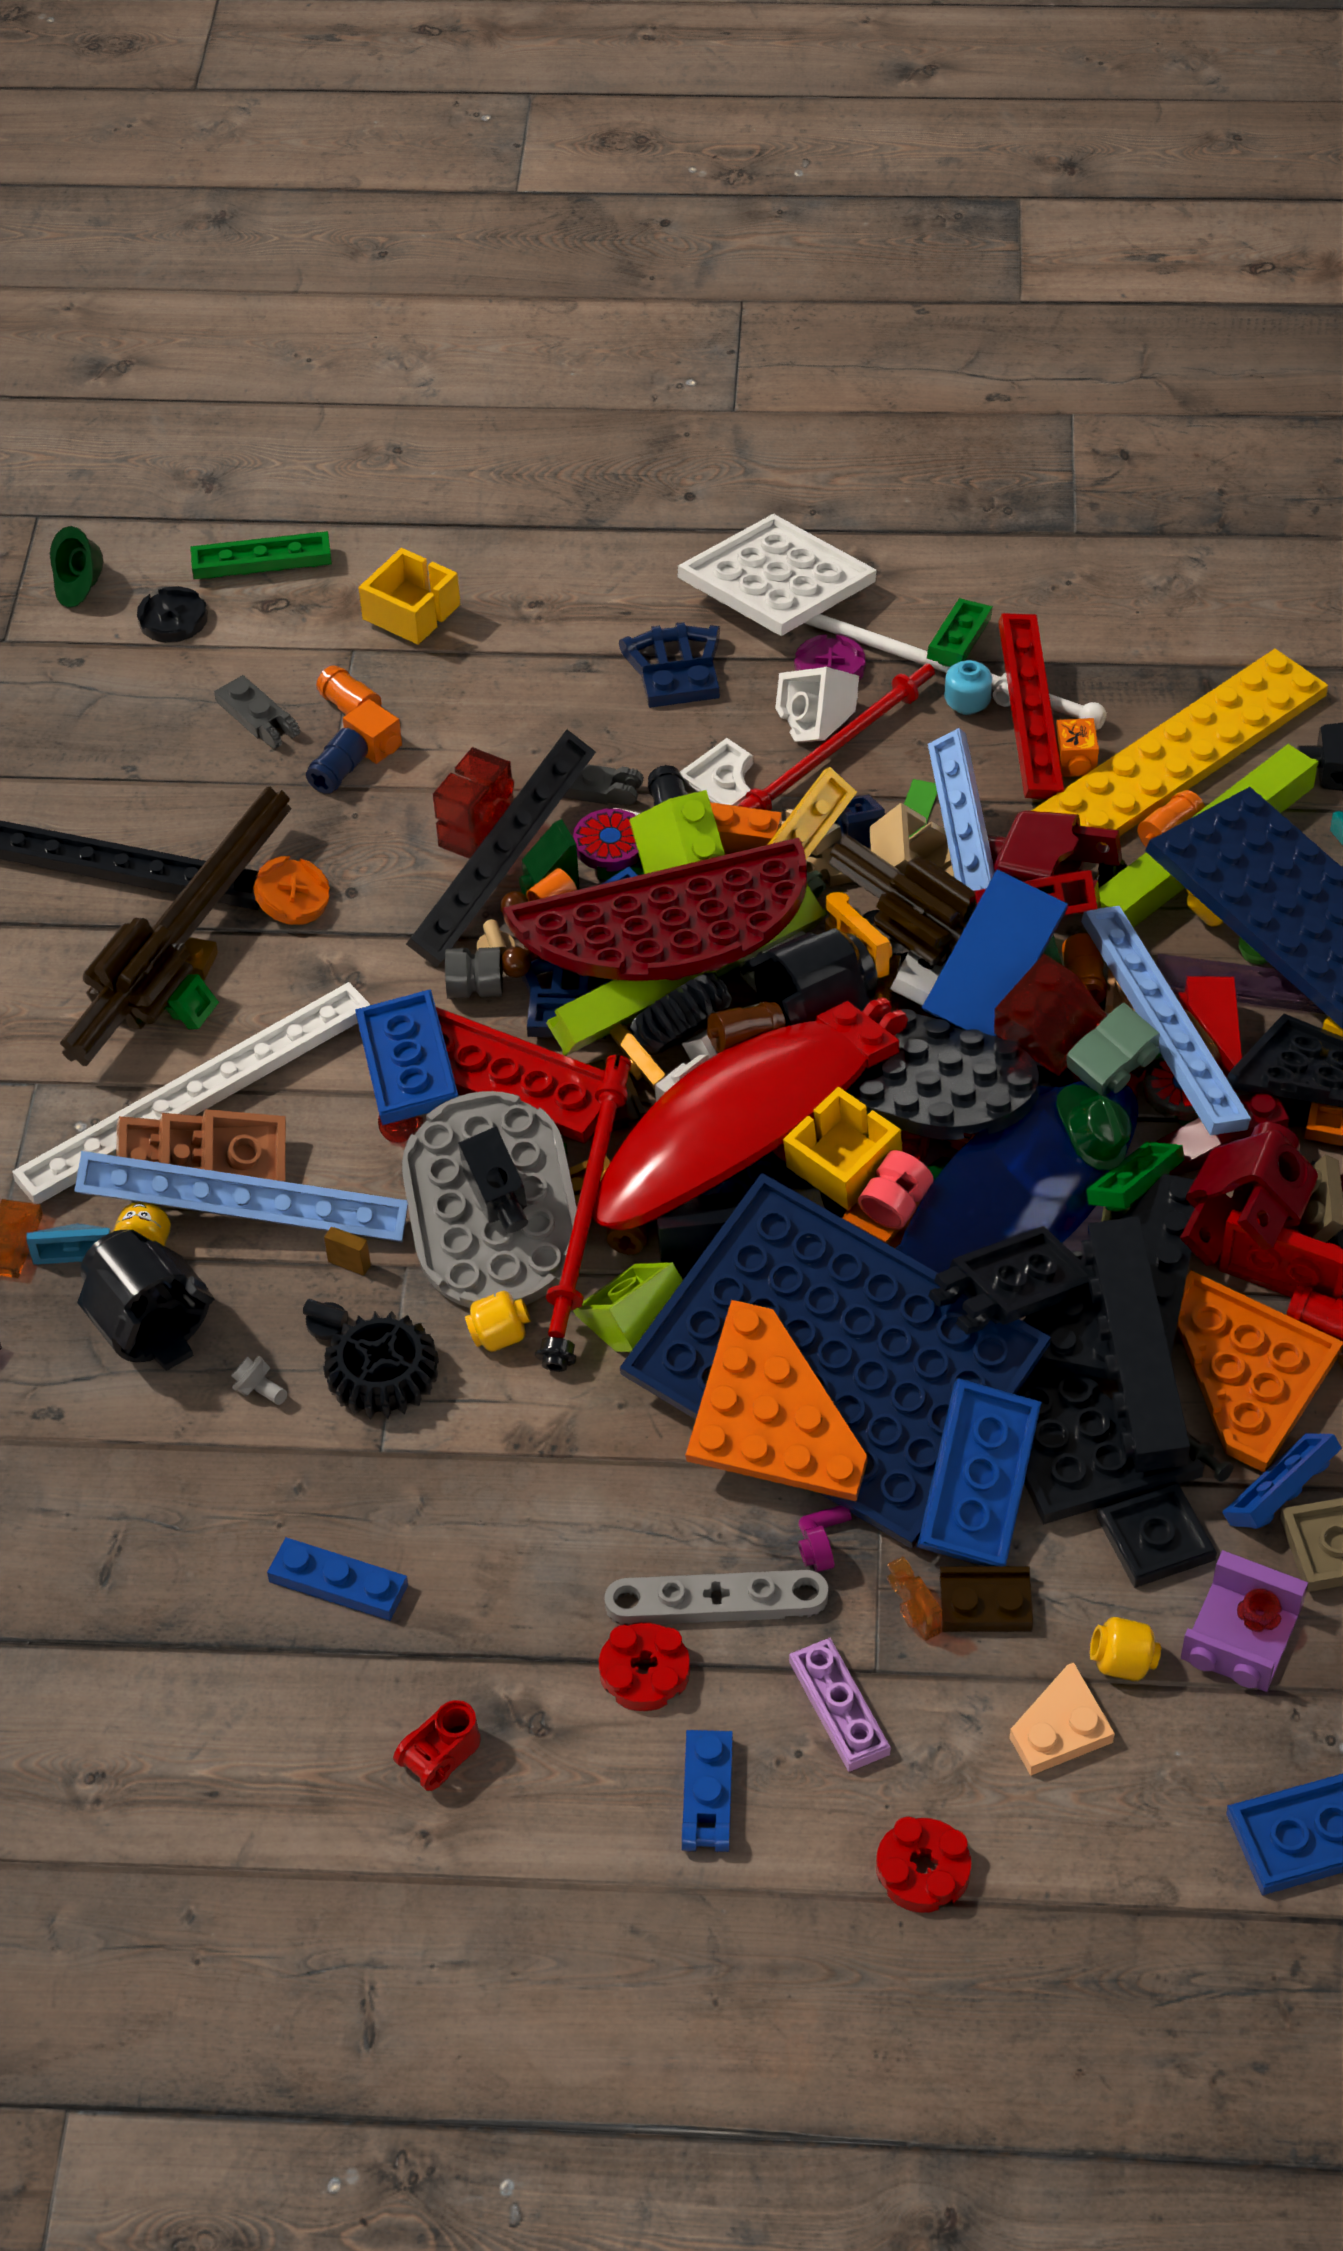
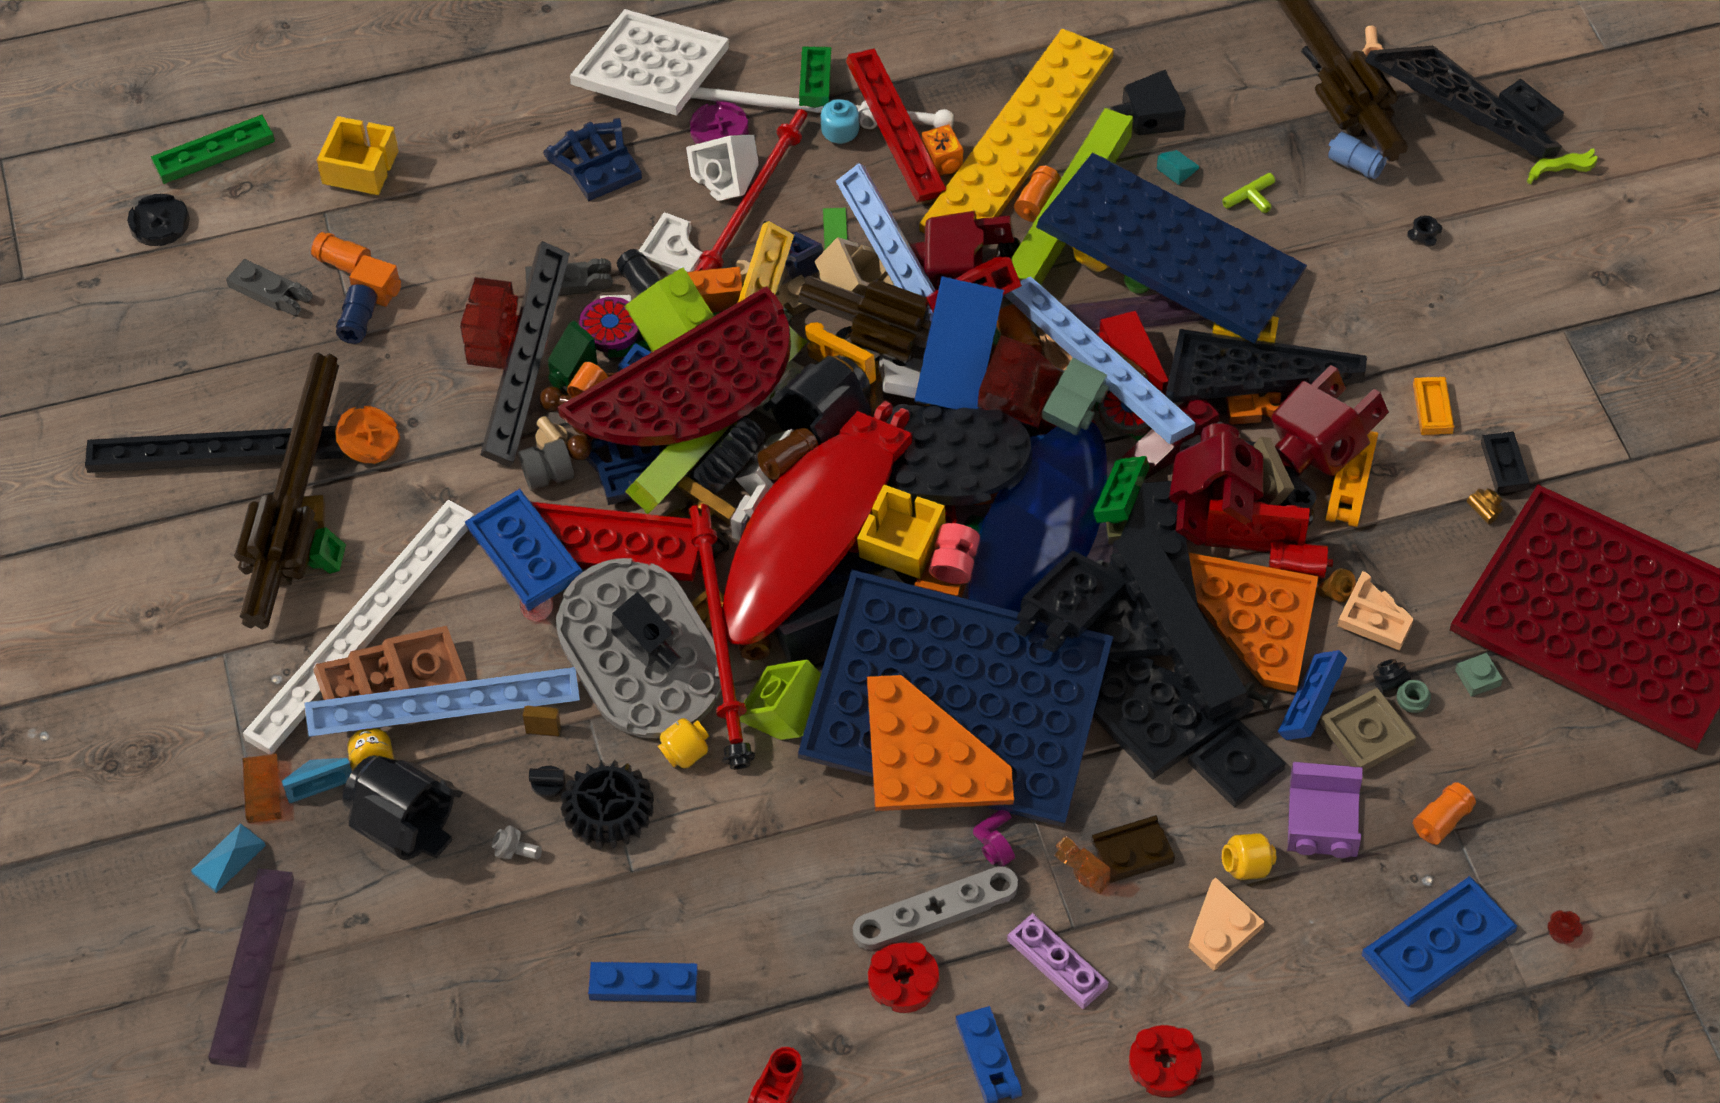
camera: 20 degrees left, 5 degrees up
(75, 565) = (59, 199): dark green piece -> none
(979, 1474) = (1097, 756): blue tile -> none
(1095, 1126) = (1082, 459): dark green piece -> none
(1262, 1601) = (1336, 791): clear red plate -> none

